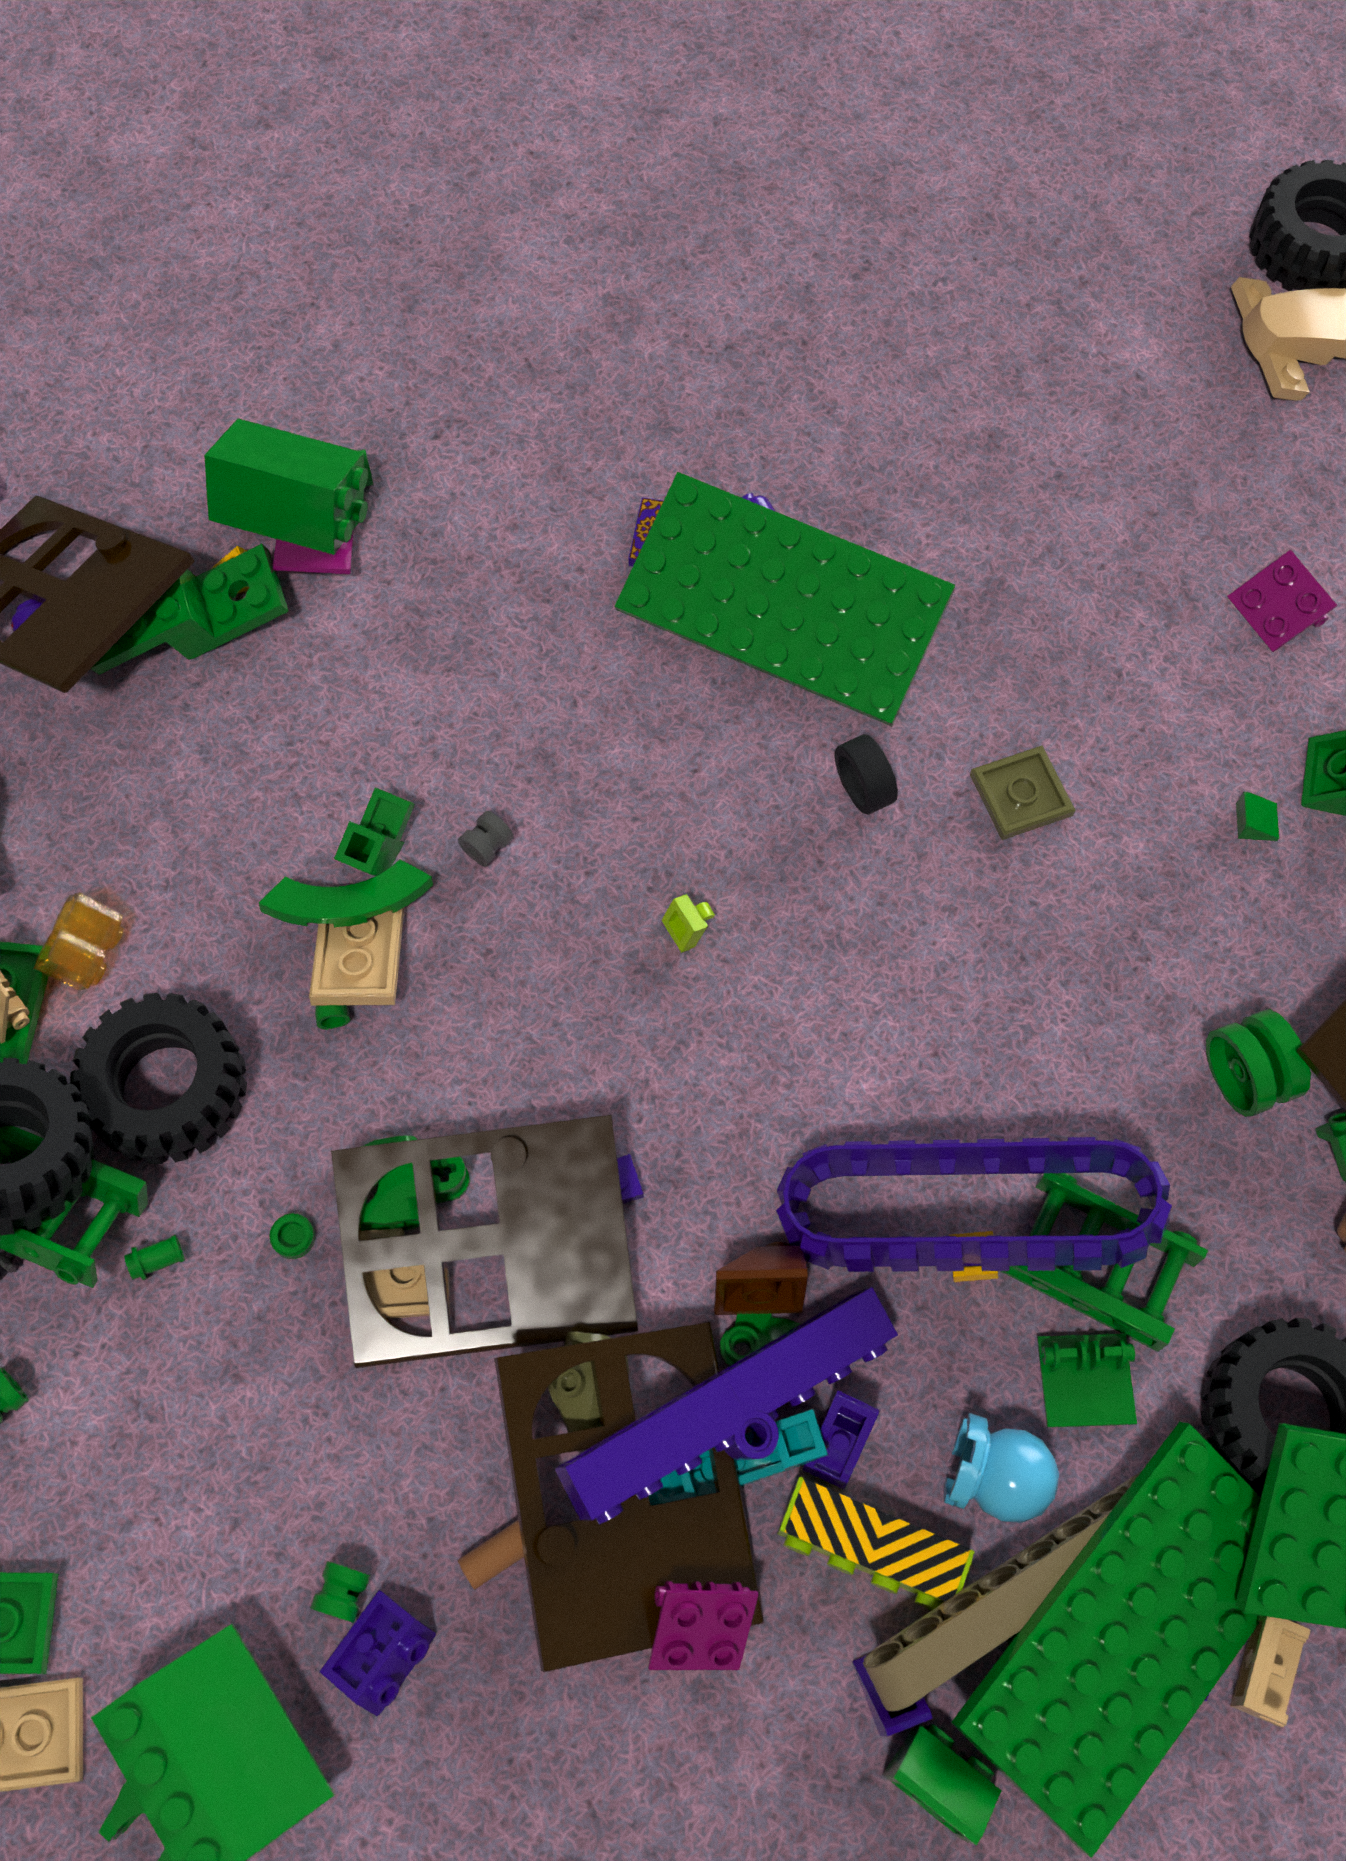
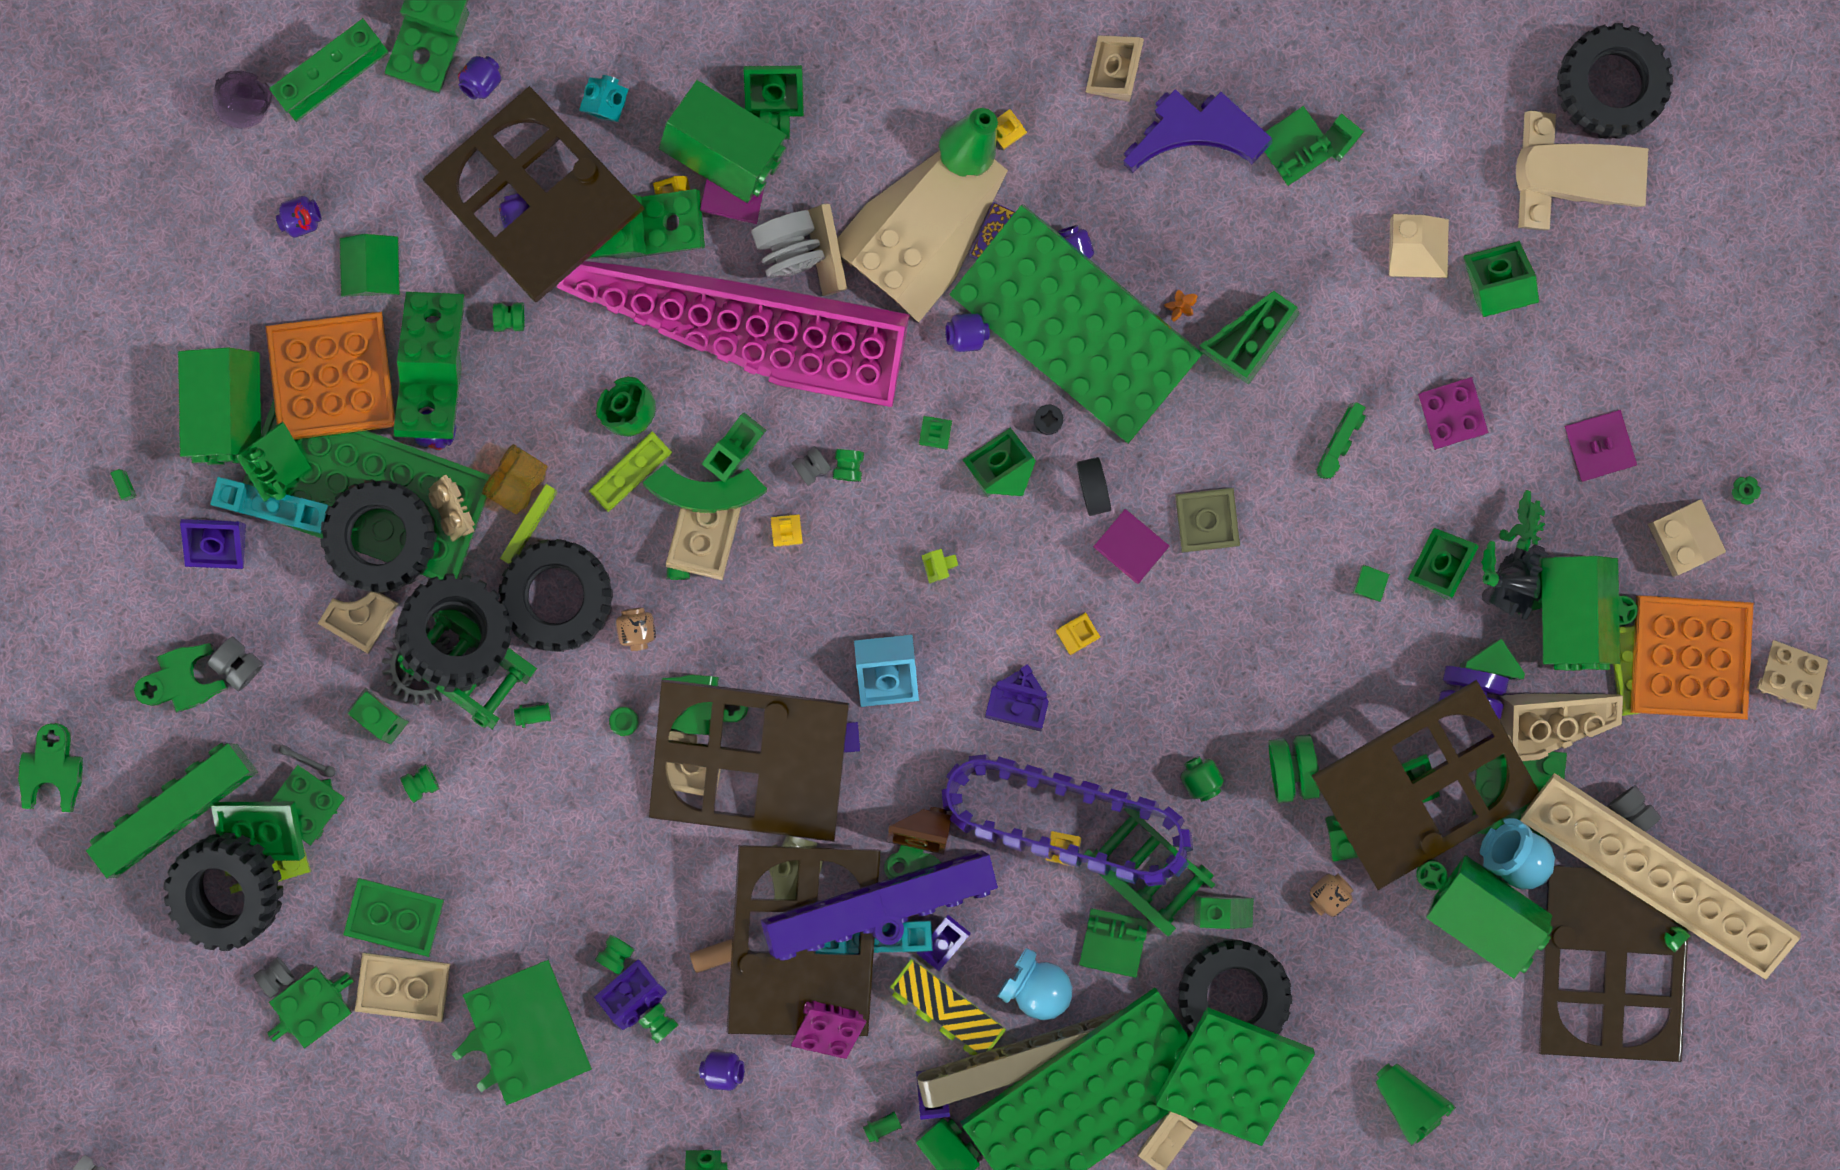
camera: 20 degrees right, 20 degrees up
(45, 751) = (508, 317): none -> green wheel
(113, 985) = (529, 523): none -> lime tile
(129, 482) = (604, 98): none -> teal brick
(222, 818) = (626, 407): none -> green cylinder
(239, 905) = (630, 471): none -> lime tile
(284, 1099) = (635, 628): none -> medium nougat head
(343, 420) = (774, 89): none -> green slope
(375, 695) = (765, 330): none -> dark pink wedge
(394, 582) = (788, 245): none -> light grey wheel
(431, 1688) = (658, 1023): none -> green wheel
(446, 589) = (830, 269): none -> tan tile
(471, 928) = (786, 530): none -> yellow tile
(535, 827) = (848, 465): none -> green wheel
(548, 1742) = (722, 1071): none -> dark purple head
(562, 544) = (920, 232): none -> tan wedge
(598, 423) = (970, 143): none -> green cone
(636, 423) = (1009, 129): none -> yellow tile
(639, 766) = (935, 432): none -> green tile
(648, 641) = (966, 332): none -> dark purple head
(653, 1074) = (886, 670): none -> medium azure slope
(737, 781) = (1002, 465): none -> green slope
(748, 332) = (1114, 66): none -> tan slope
(773, 722) = (1047, 424): none -> black wheel
(825, 1769) = (882, 1127): none -> green pin
(846, 1074) = (1018, 701): none -> dark purple slope
(883, 364) = (1183, 125): none -> dark purple arch
(898, 969) = (1078, 633): none -> yellow slope
(910, 555) = (1182, 304): none -> orange plant
(936, 839) = (1131, 546): none -> magenta piece
(985, 369) = (1297, 146): none -> green hinge
(1006, 568) = (1252, 337): none -> green wedge
(1033, 349) = (1343, 136): none -> green panel
(1133, 1113) = (1201, 779): none -> green head
(1156, 662) = (1340, 440): none -> green hinge
(1162, 437) = (1418, 246): none -> tan slope
(1230, 1283) = (1223, 912): none -> green slope
(1280, 450) = (1502, 279): none -> green slope

